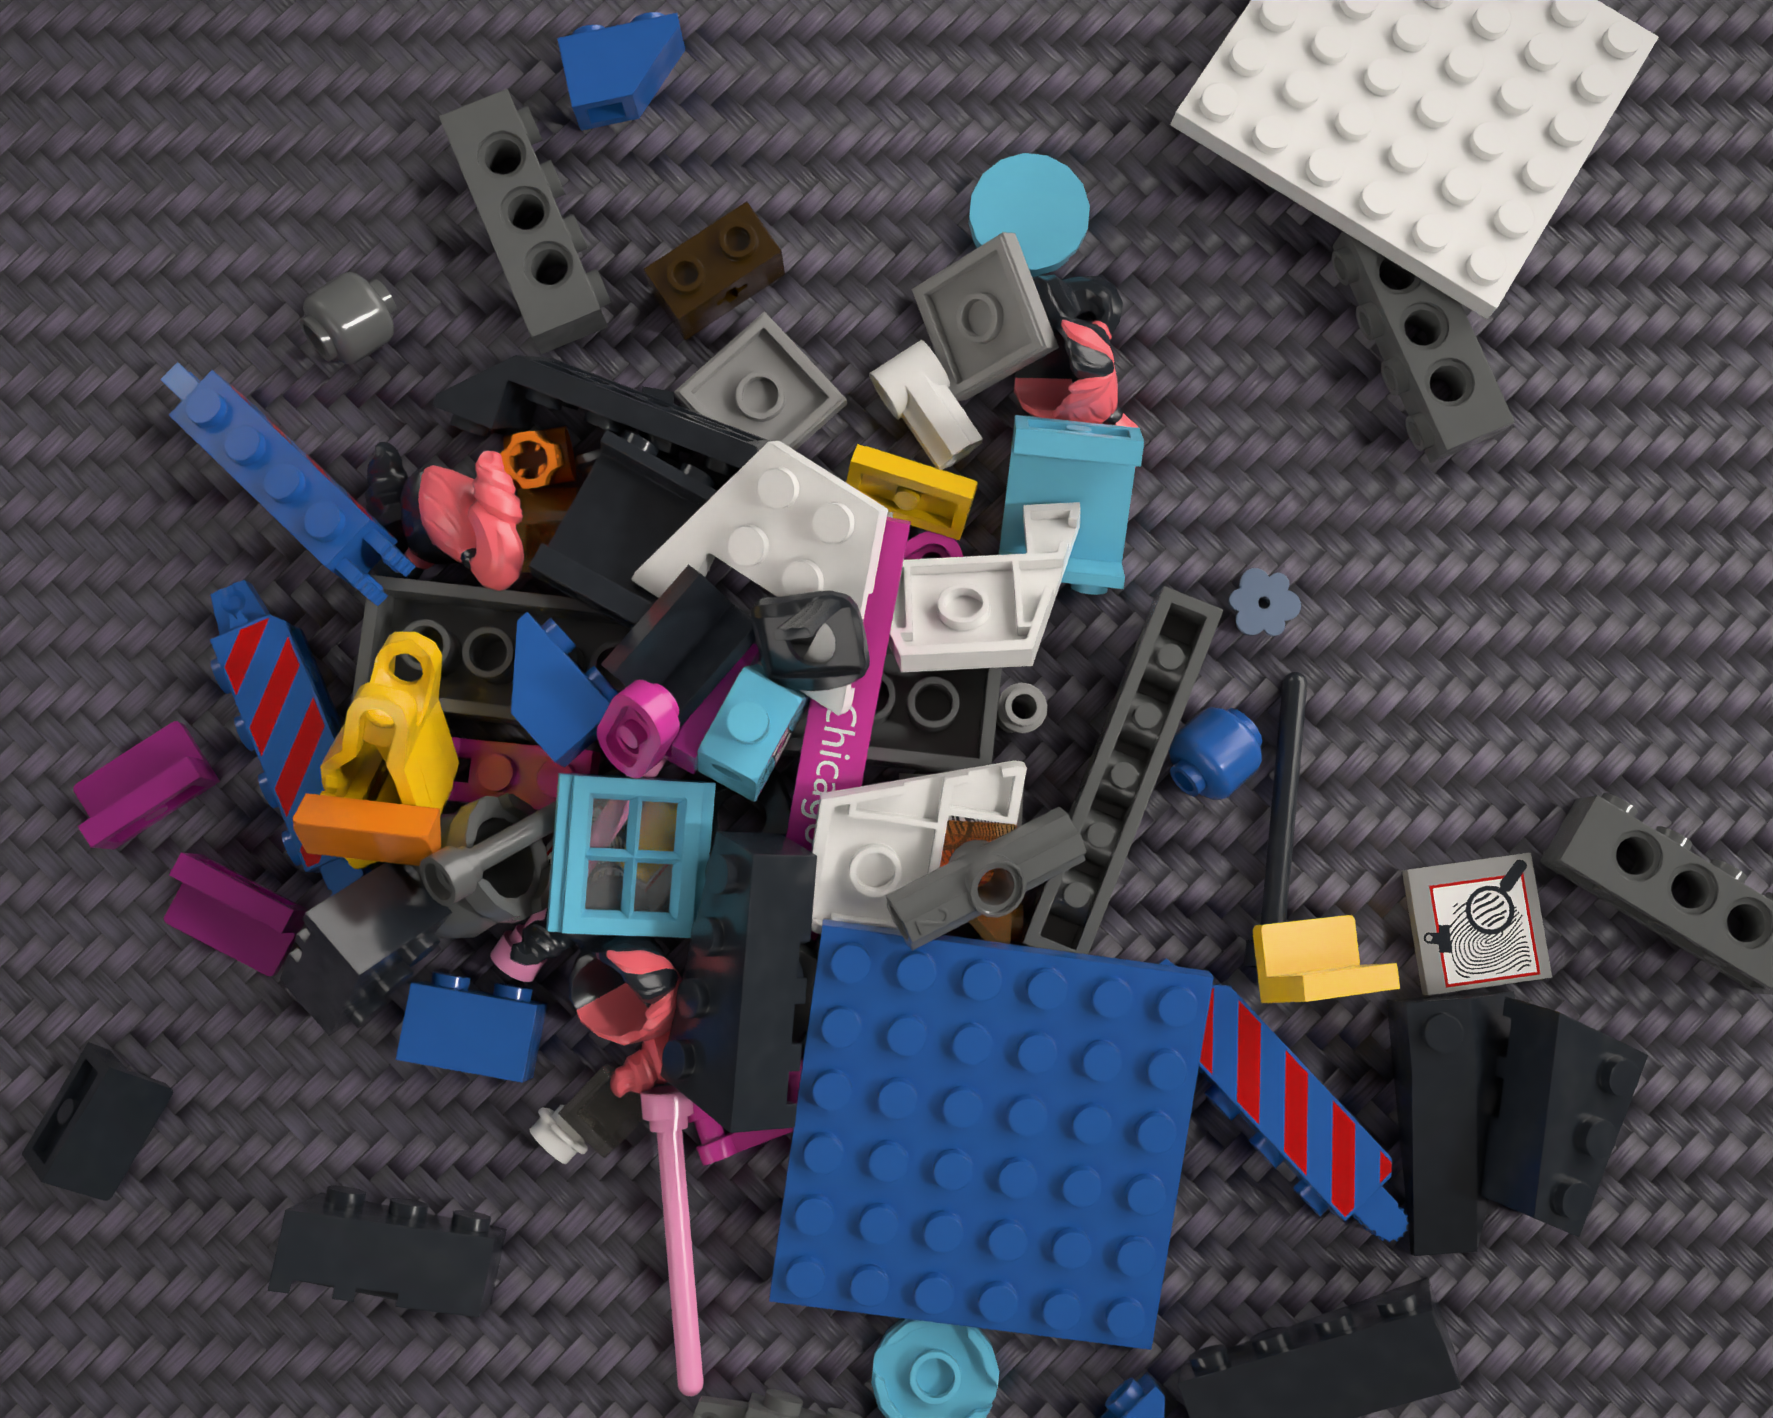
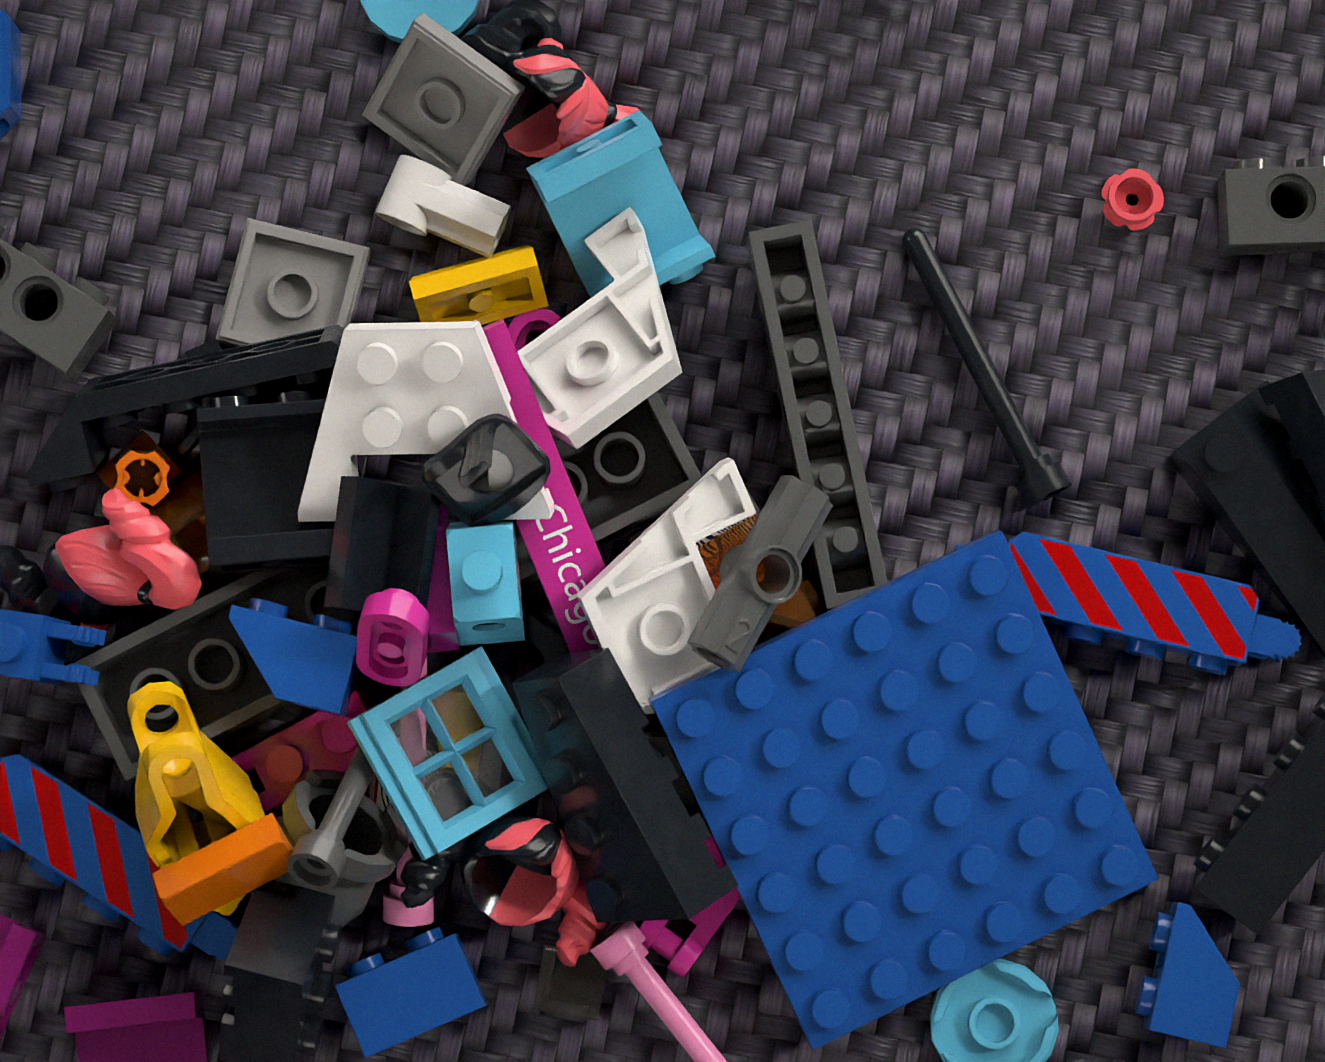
camera: 30 degrees left, 0 degrees up
(557, 1135) = (543, 1031): white plate -> none
(715, 270) = (183, 211): dark brown brick -> none
(1033, 703) = (701, 402): light grey pin -> none
(1215, 753) = (885, 344): blue head -> none
(1281, 603) = (859, 180): sand blue plant -> none
(1315, 961) = (1081, 463): yellow panel -> none
(1476, 924) = (1199, 343): tile -> none
(1514, 766) = (1143, 187): none -> coral plate

